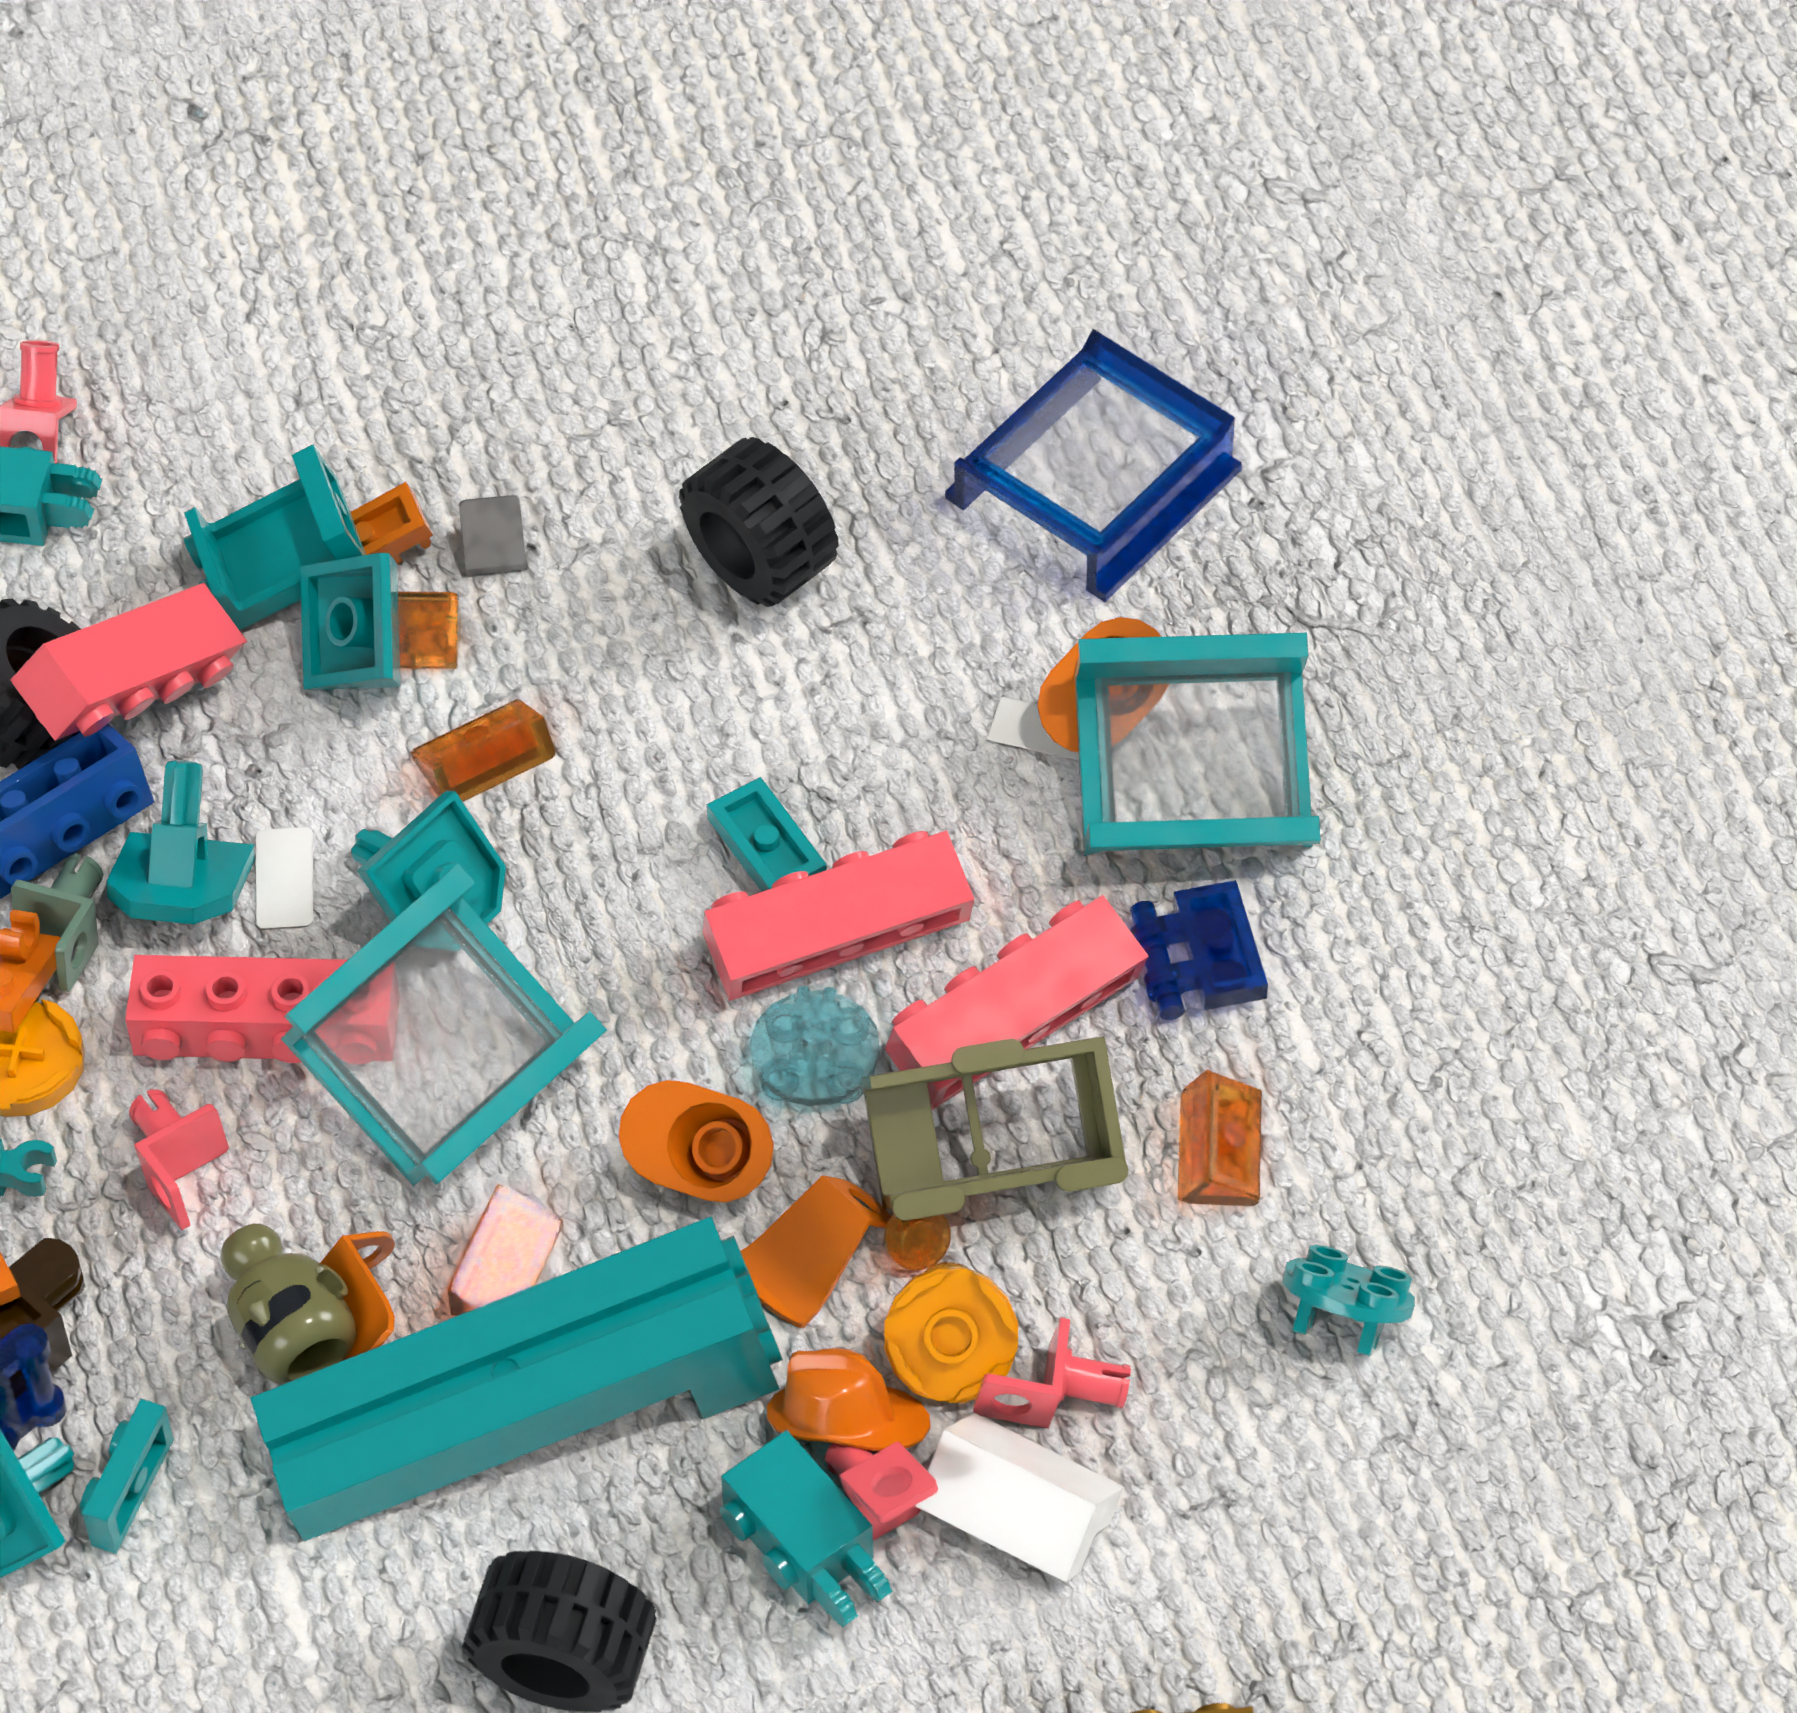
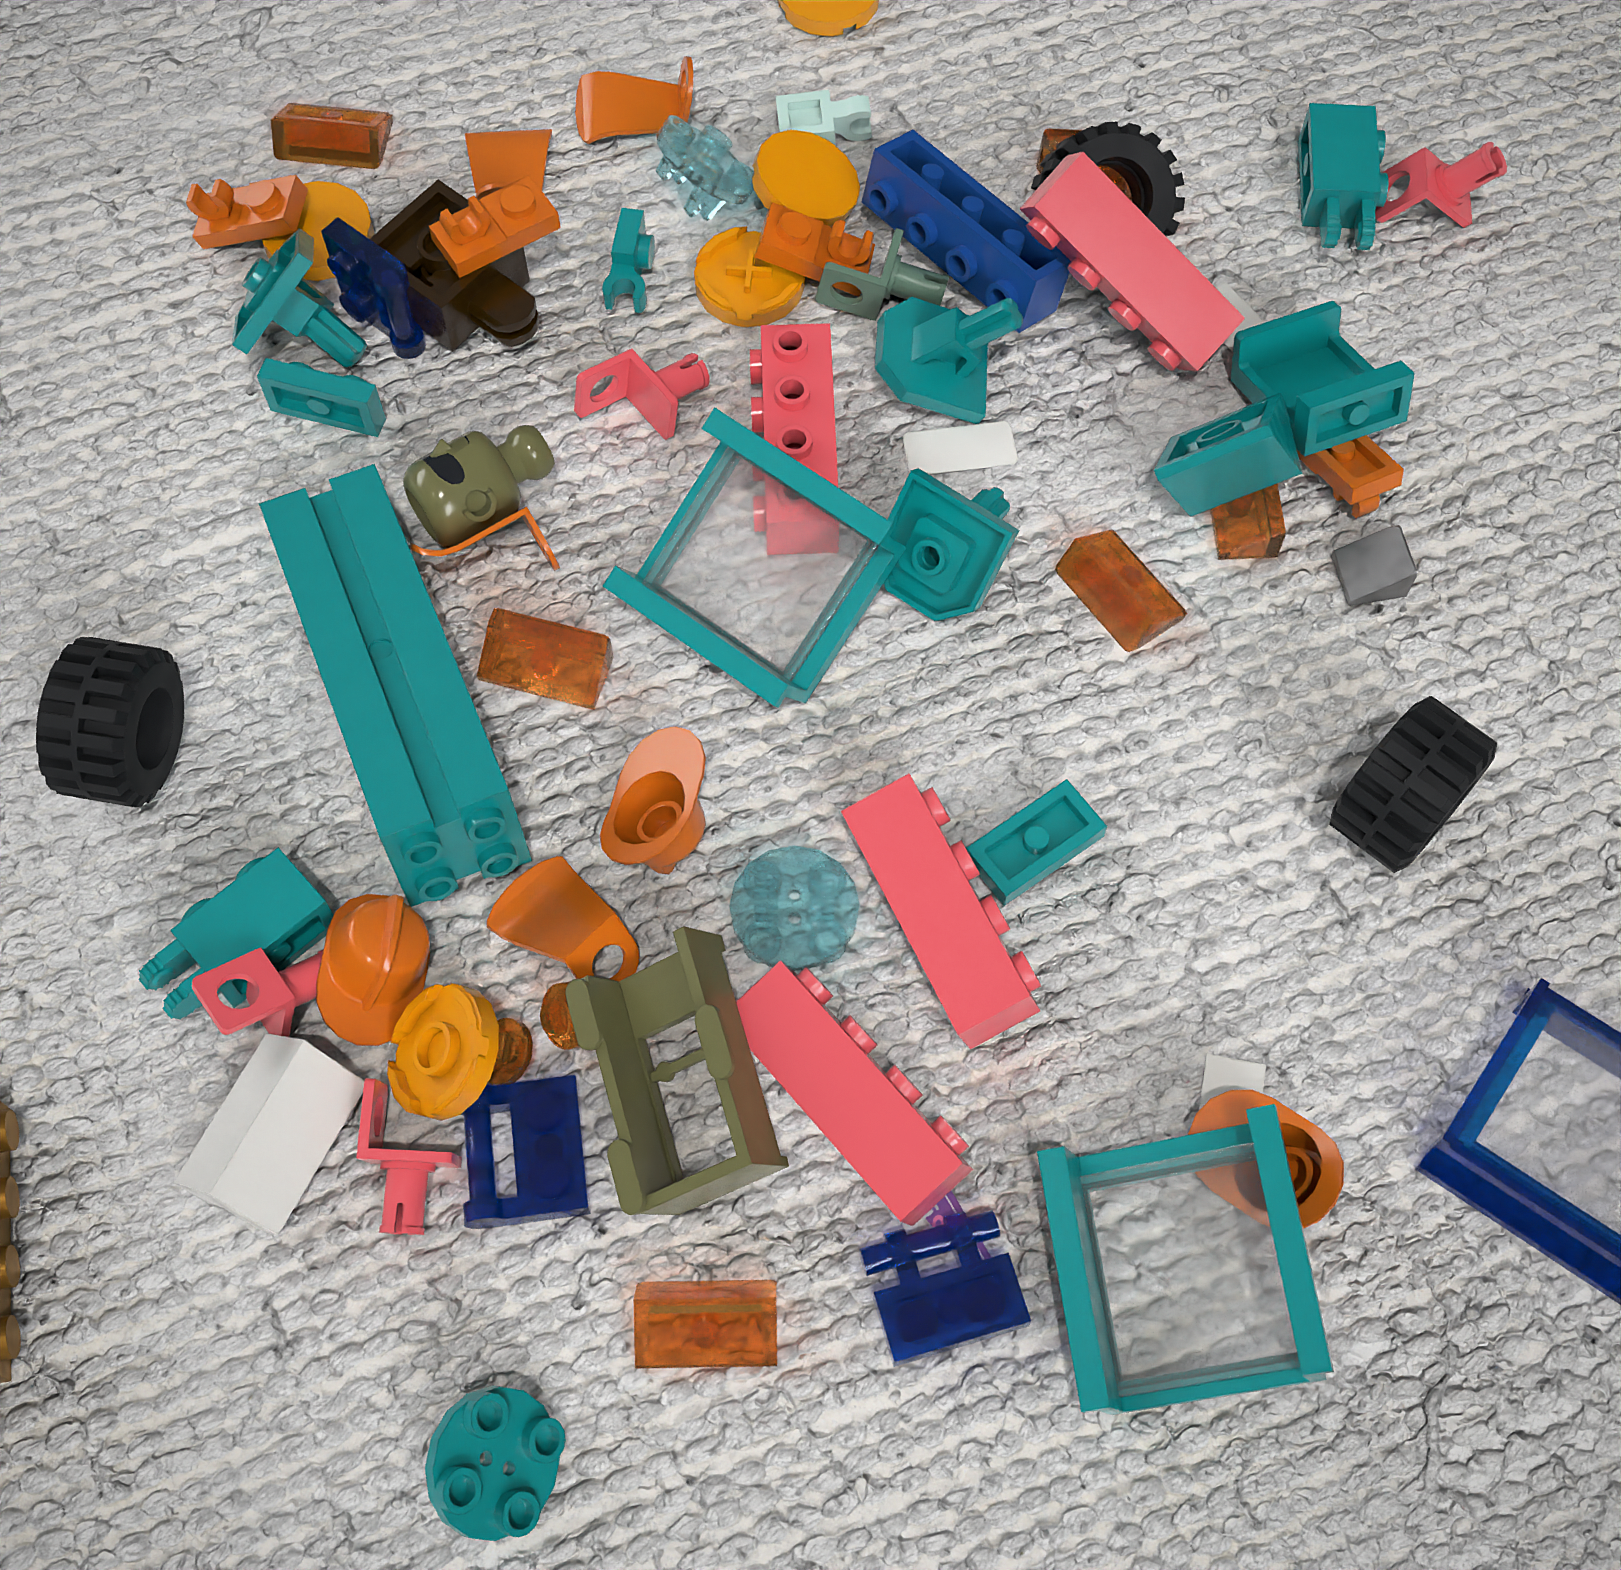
camera: 85 degrees right, 10 degrees up
(1052, 1269) = (546, 1154): none -> clear blue plate

